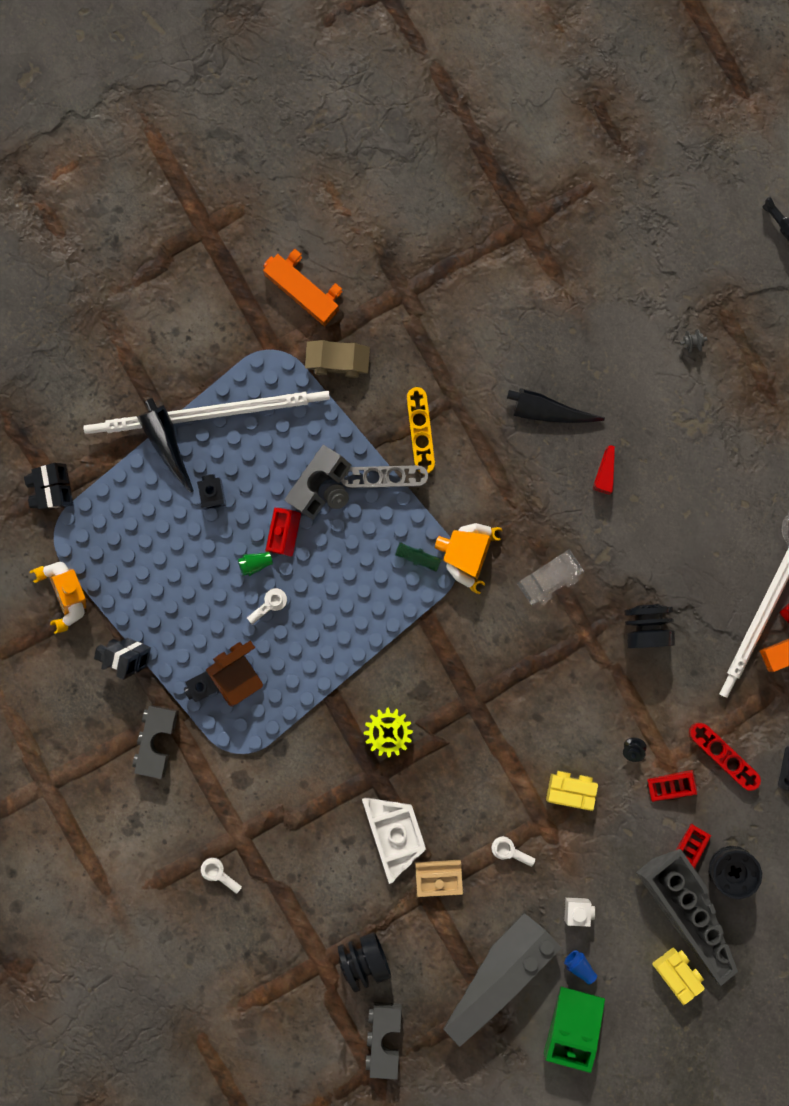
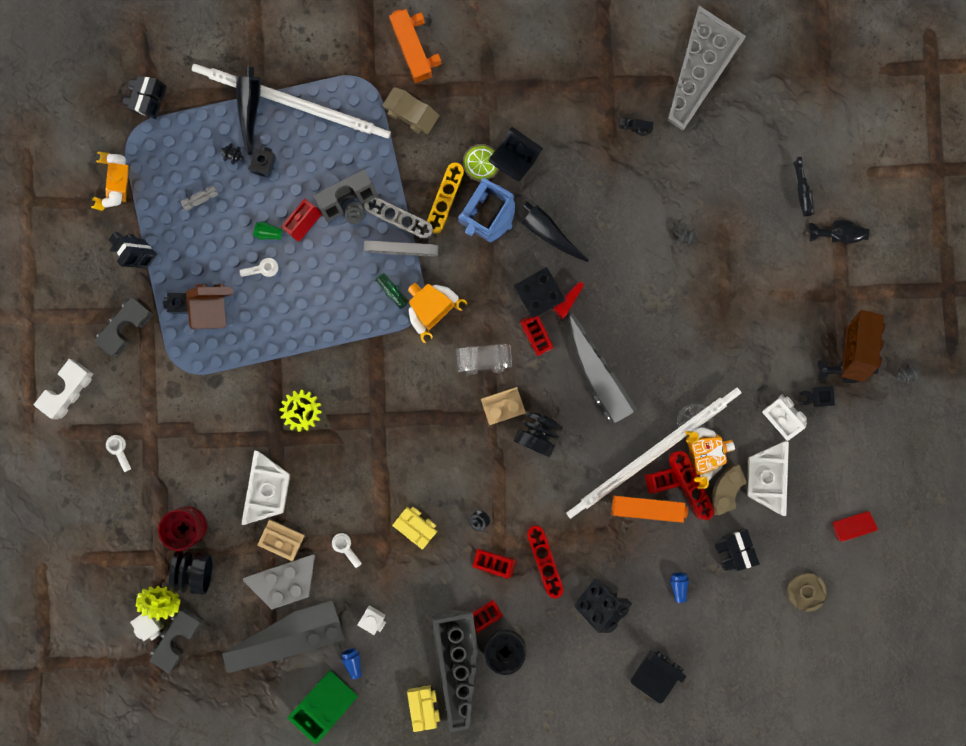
camera: 25 degrees right, 0 degrees up
(133, 821) = (75, 378): none -> white arch
(164, 564) = (199, 198): none -> light grey axle
(174, 500) = (232, 154): none -> black wheel
(325, 931) = (172, 531): none -> dark red wheel
(346, 1011) = (157, 603): none -> neon yellow gear
(346, 1041) = (146, 628): none -> white brick
(404, 508) = (401, 248): none -> light grey beam
(439, 374) = (477, 163): none -> lime tile
(464, 921) = (283, 583): none -> light grey wing
(472, 347) = (515, 154): none -> black bracket
(493, 425) = (503, 220): none -> medium blue animal
(573, 479) = (539, 292): none -> black bracket
(578, 524) = (538, 351): none -> red slope
(586, 251) = (639, 126): none -> black plate
(595, 617) = (503, 406): none -> tan plate
(615, 140) = (706, 56): none -> light grey wing
(690, 540) = (603, 383): none -> wedge

